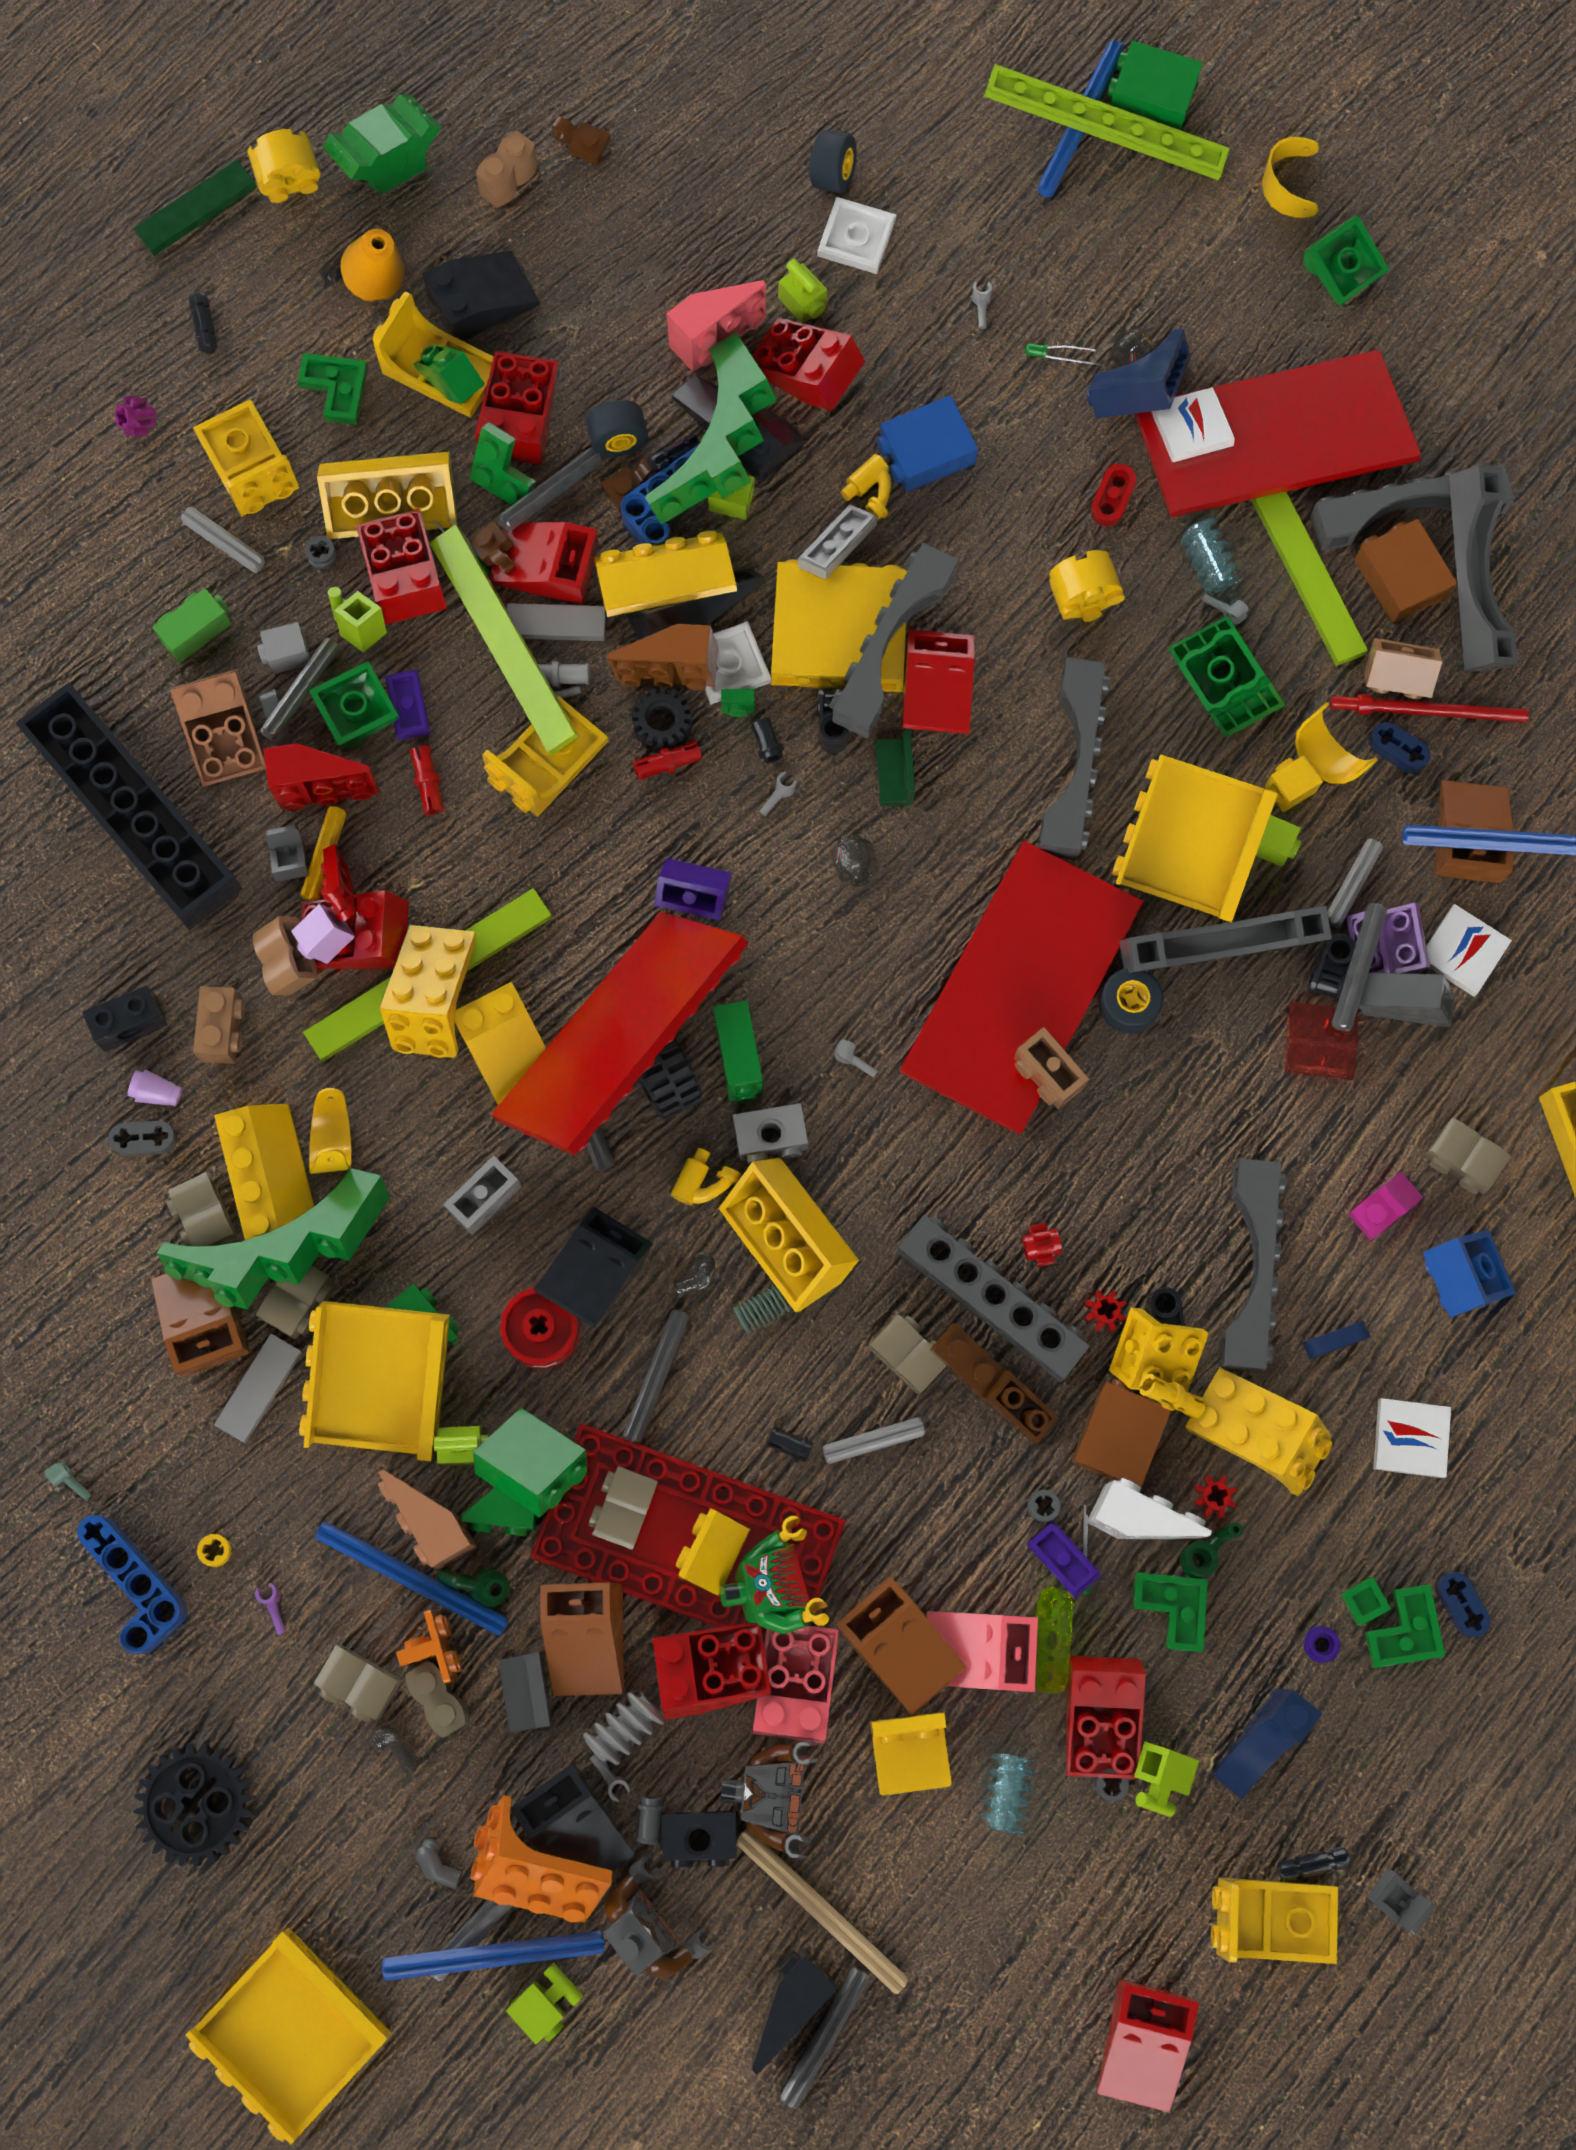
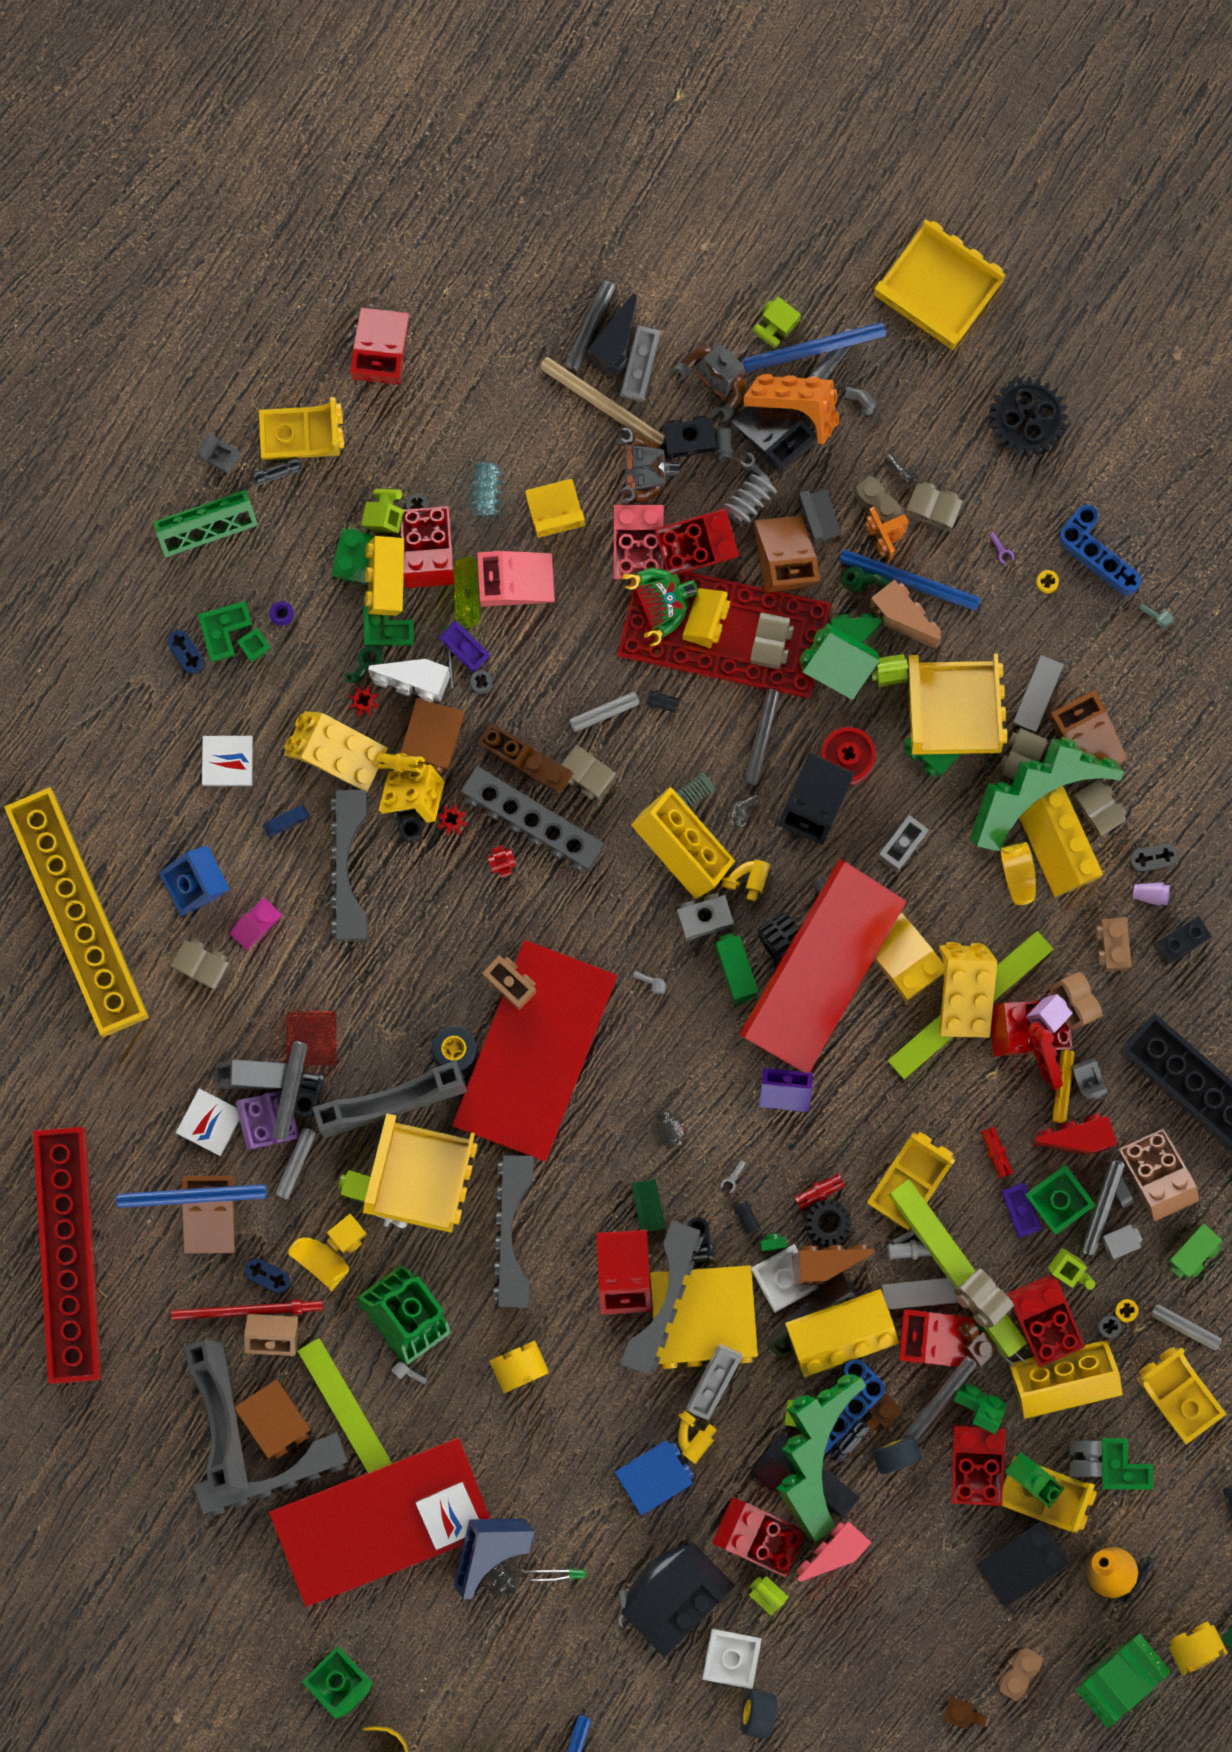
camera: 175 degrees right, 5 degrees up
(288, 562) = (1132, 1316): none -> yellow bush
(380, 397) = (1085, 1459): none -> dark grey wheel
(475, 589) = (983, 1299): none -> dark tan brick
(757, 1966) = (640, 363): none -> light grey tile
(900, 1646) = (570, 573): dark orange slope -> none
(917, 307) = (674, 1596): none -> black slope
(1113, 497) = (503, 1454): red plate -> none
(1172, 1676) = (385, 575): none -> yellow brick
(1200, 1714) = (350, 557): none -> green slope
(1207, 556) = (425, 1411): clear light blue piece -> none
(1273, 1730) = (312, 549): dark blue arch -> none
(1429, 1803) = (205, 515): none -> green fence

